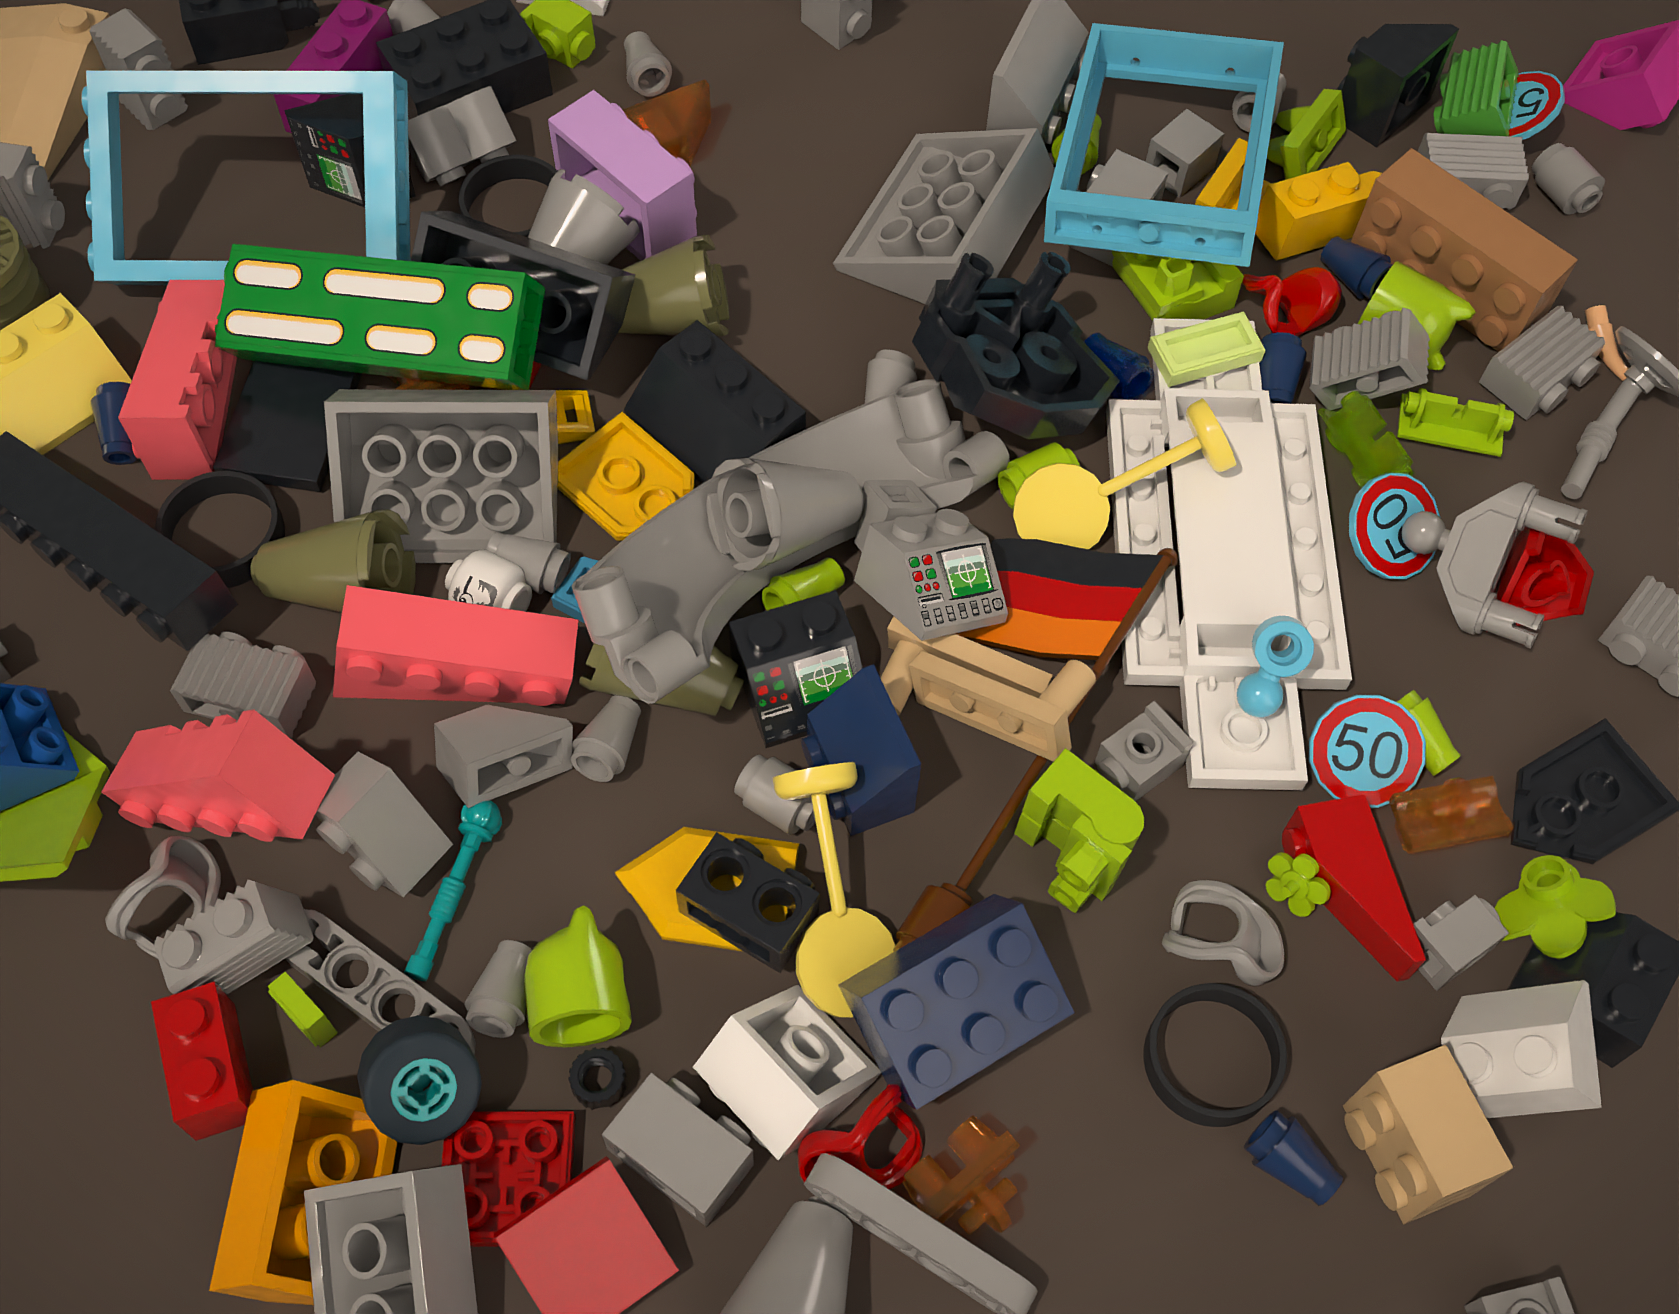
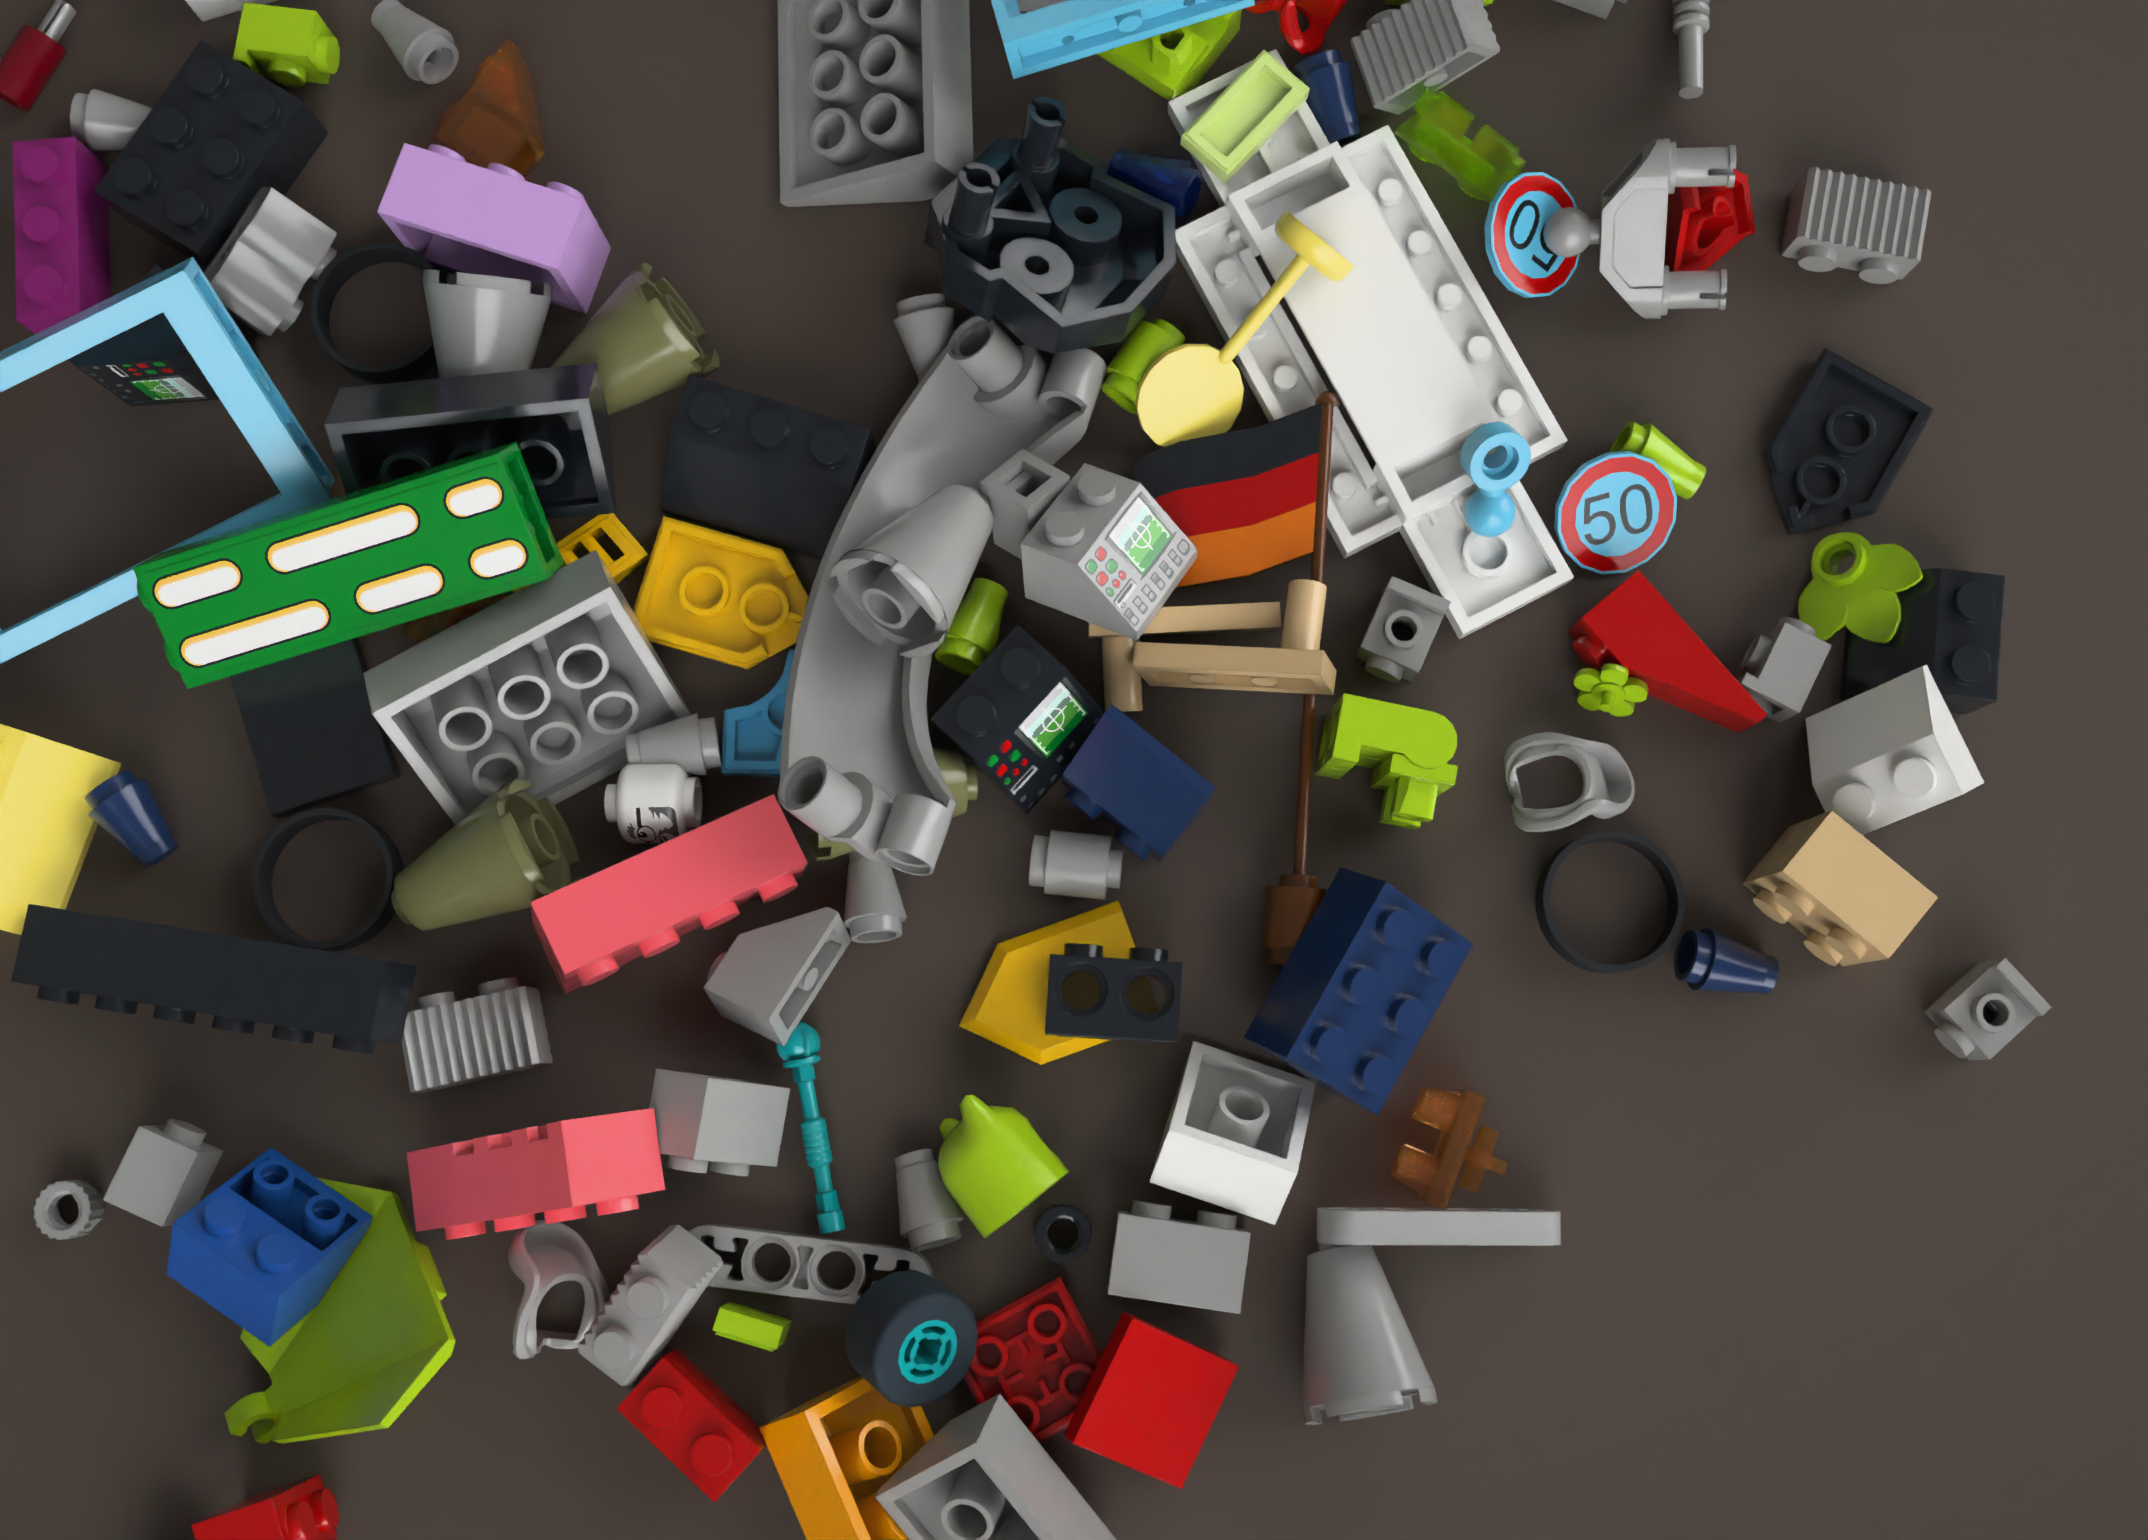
camera: 25 degrees left, 20 degrees up
(181, 385) = (171, 737): coral wedge -> none
(843, 938) = (1223, 982): light yellow piece -> none
(851, 1145) = (1337, 1189): red piece -> none
(1446, 423) = (1538, 68): lime hinge -> none
(1449, 814) = (1723, 543): clear orange hips -> none

